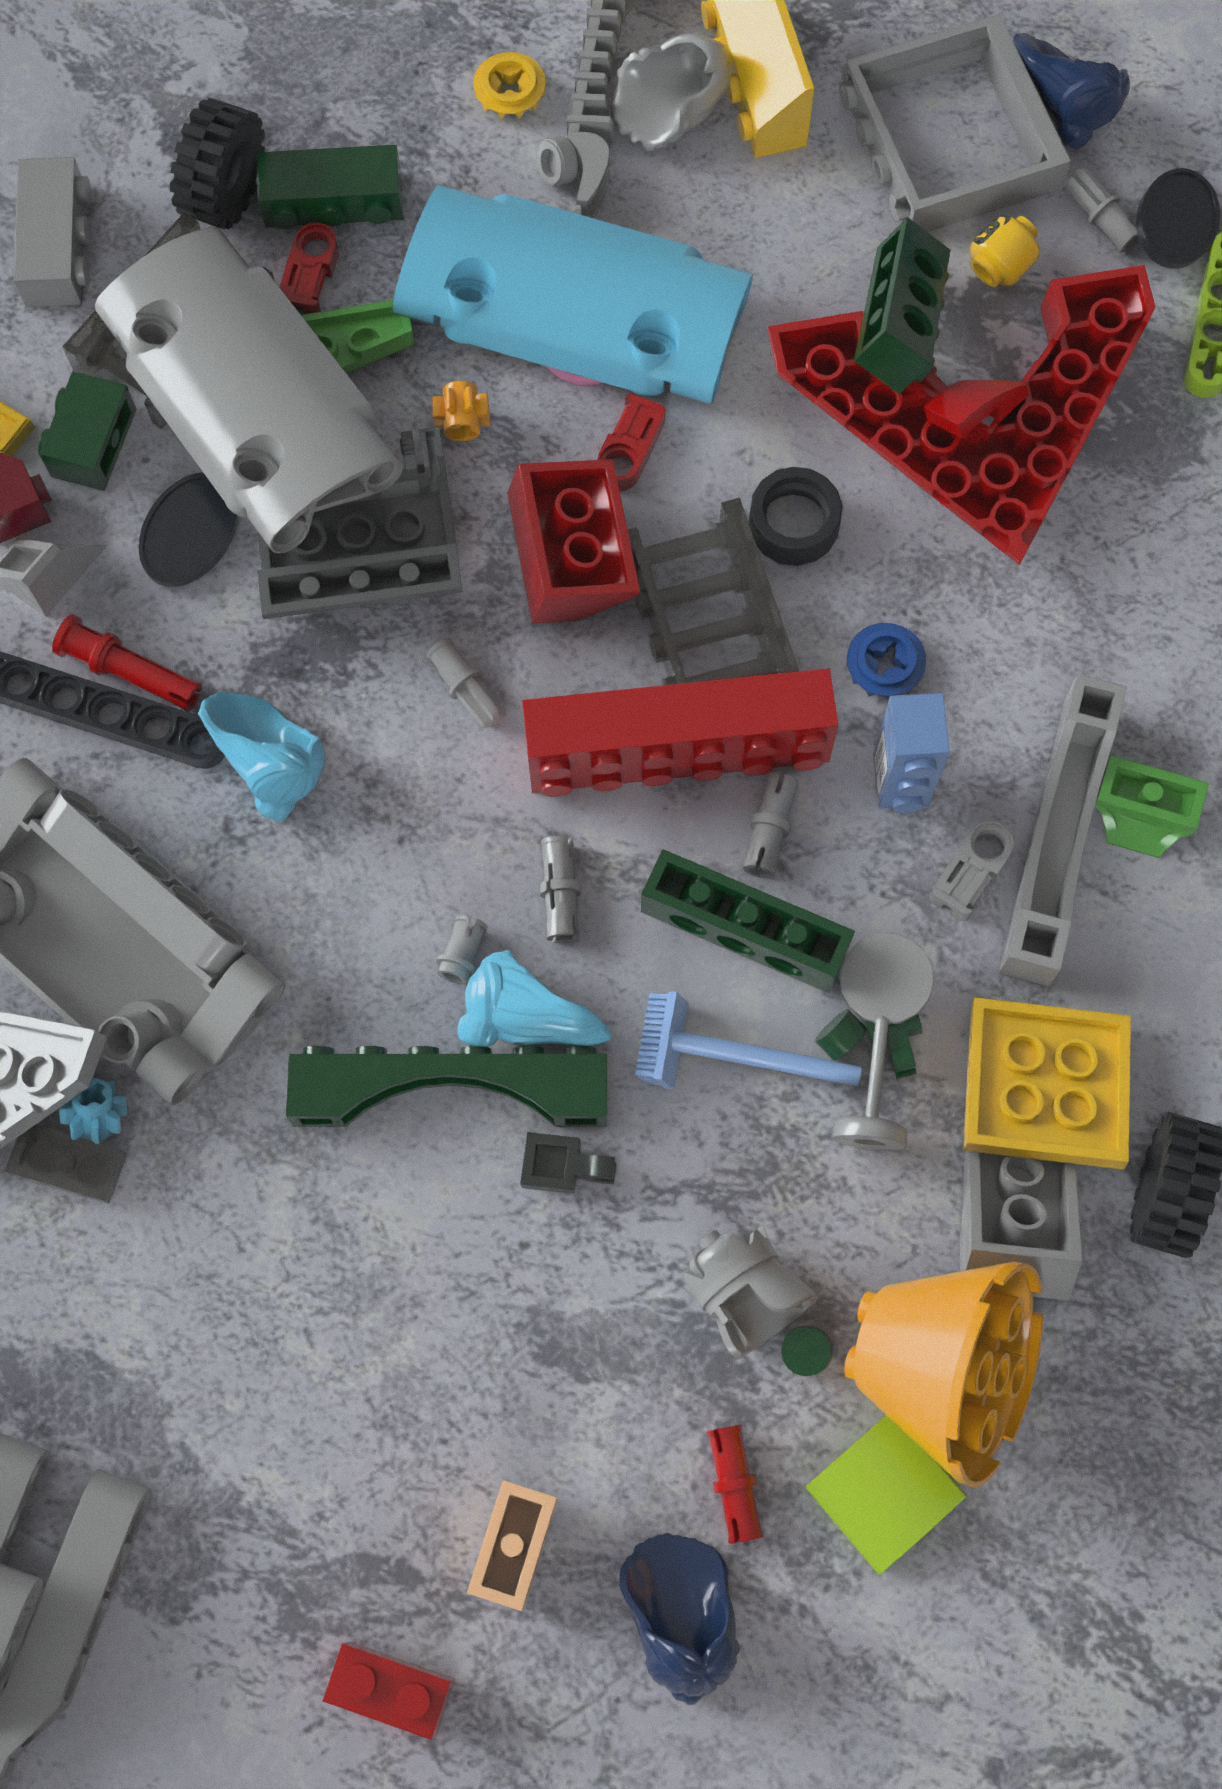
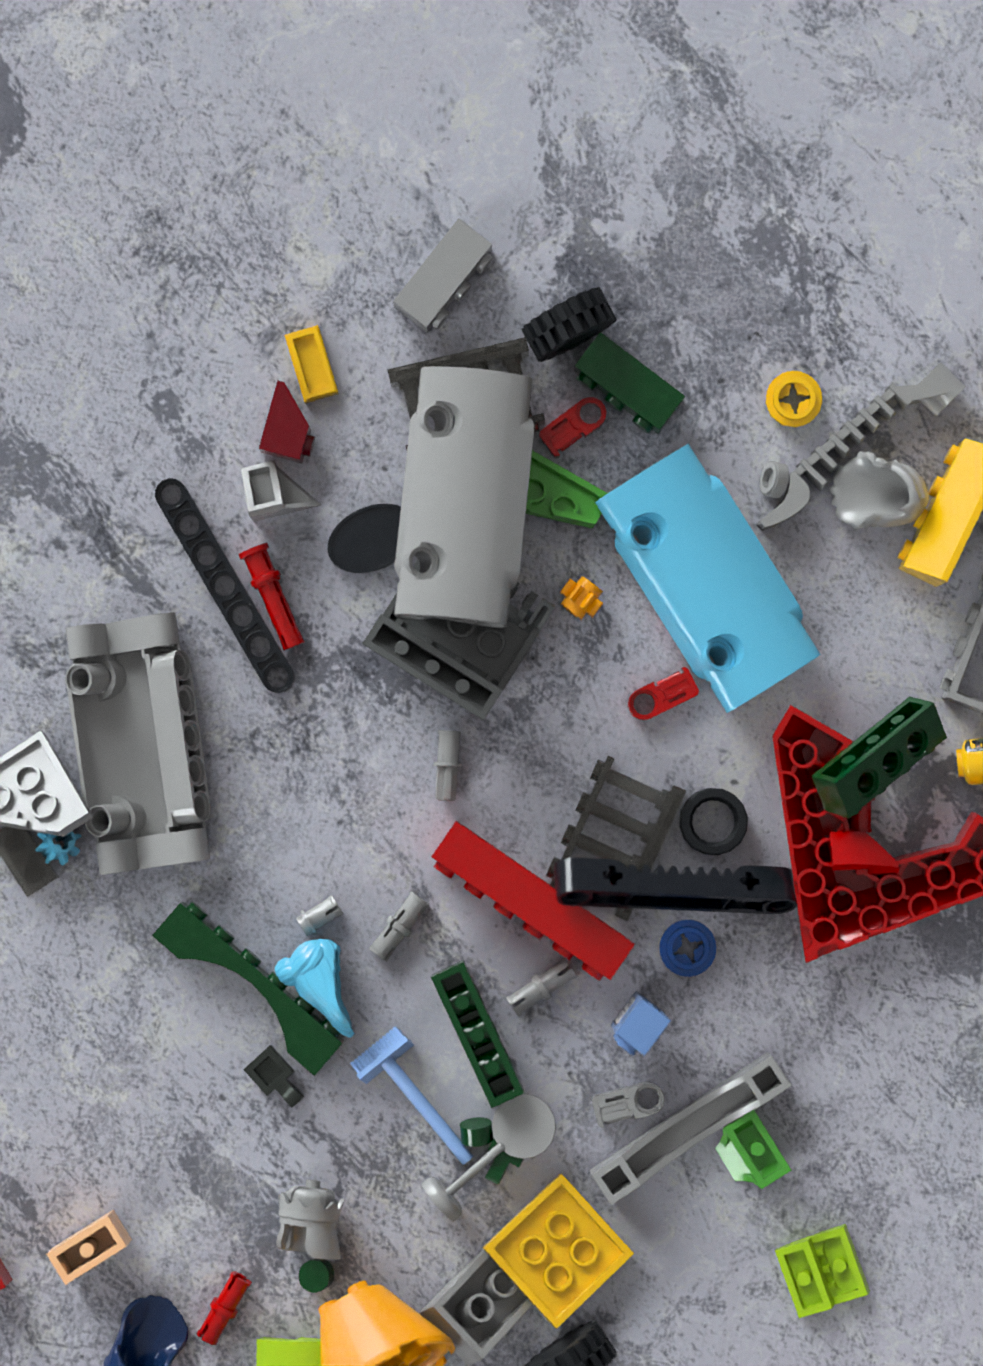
camera: 40 degrees right, 15 degrees up
(87, 430) = (362, 428): dark green brick -> none
(265, 749) = (306, 712): medium azure hair -> none
(571, 539) = (574, 734): red slope -> none
(757, 625) = (745, 891): none -> black gear

